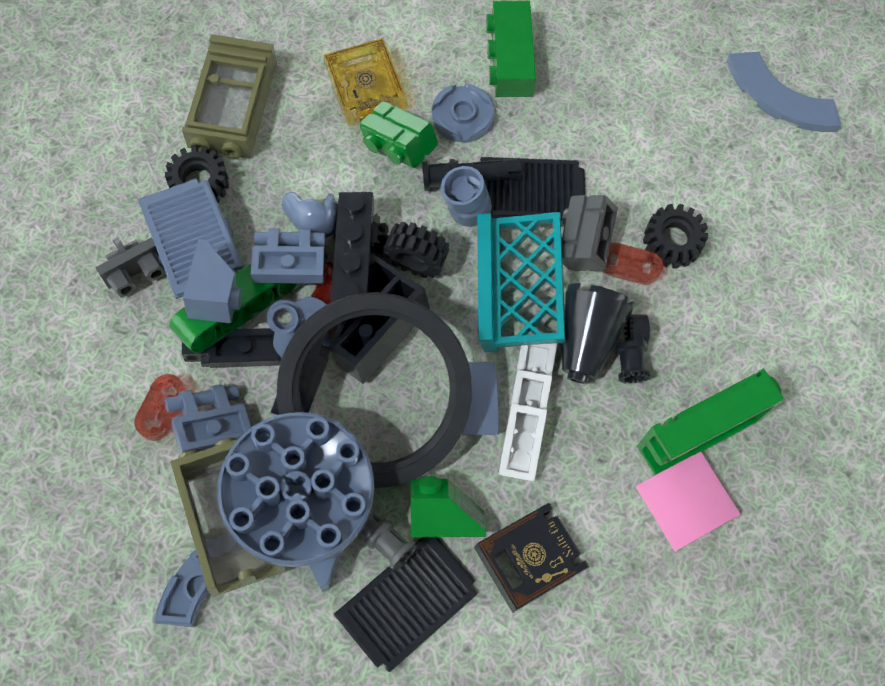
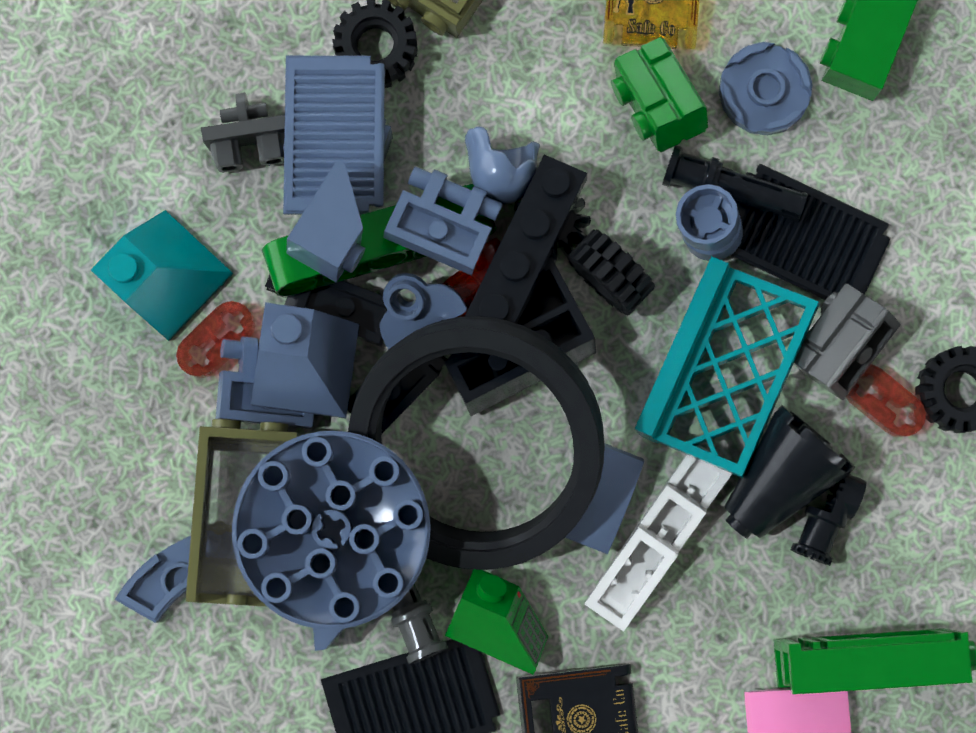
camera: 30 degrees right, 15 degrees up
(102, 379) = (162, 273): none -> teal slope
(228, 386) = (304, 361): none -> sand blue slope

